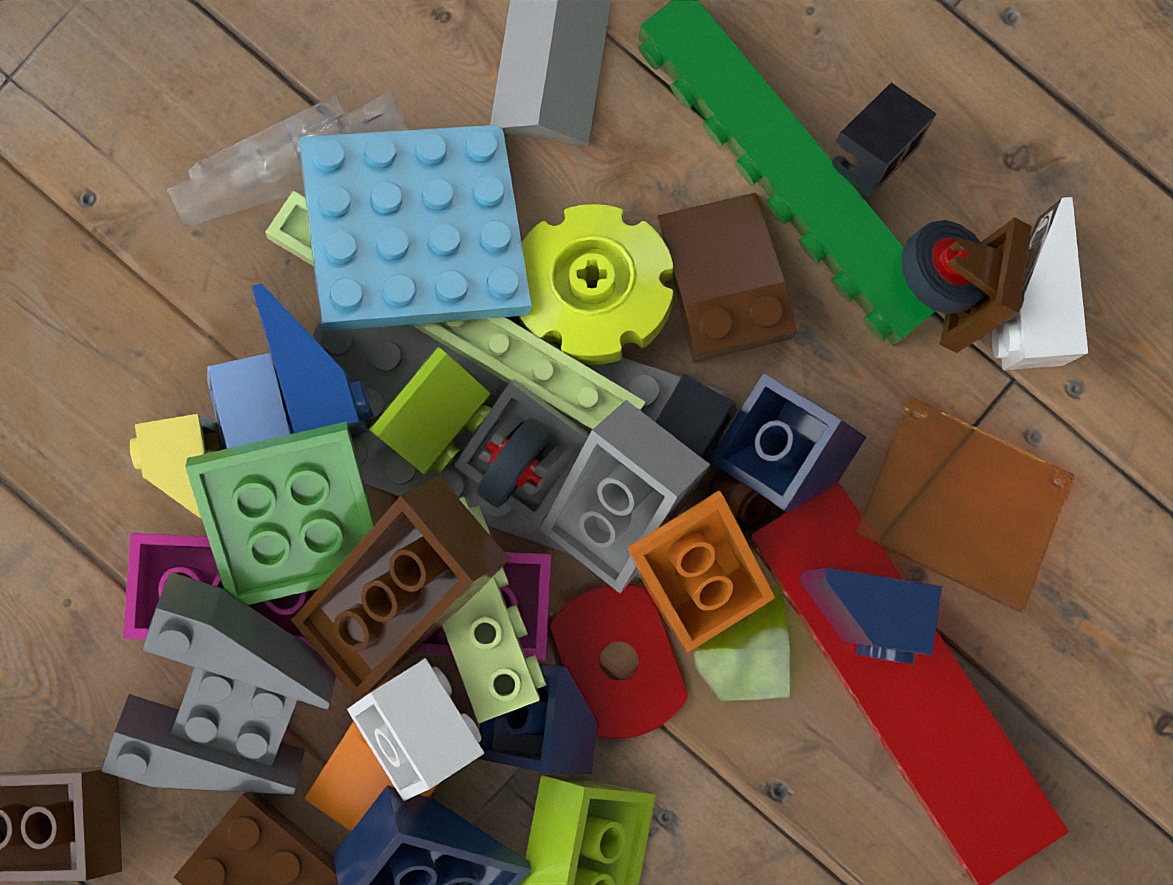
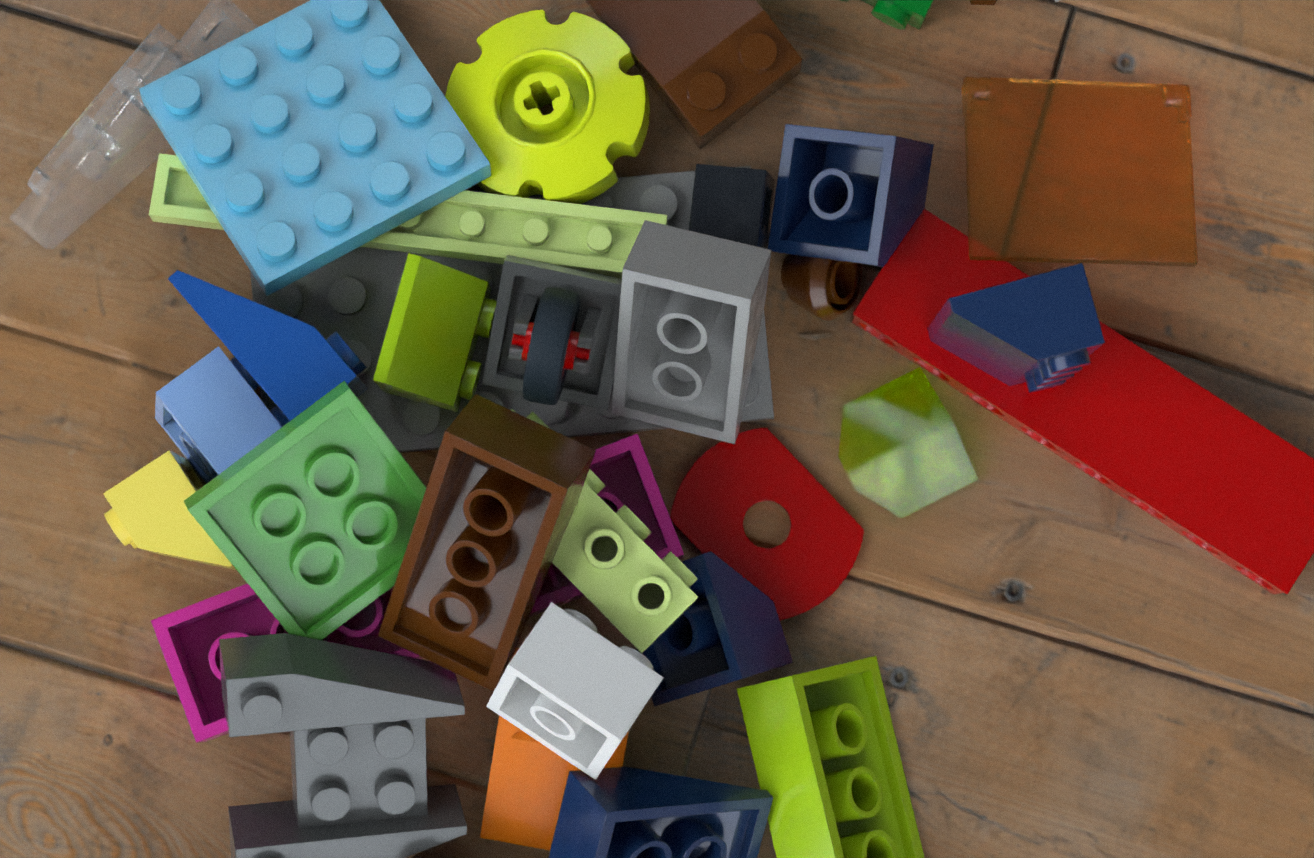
camera: 20 degrees left, 0 degrees up
(701, 572) = (814, 378): orange slope -> none

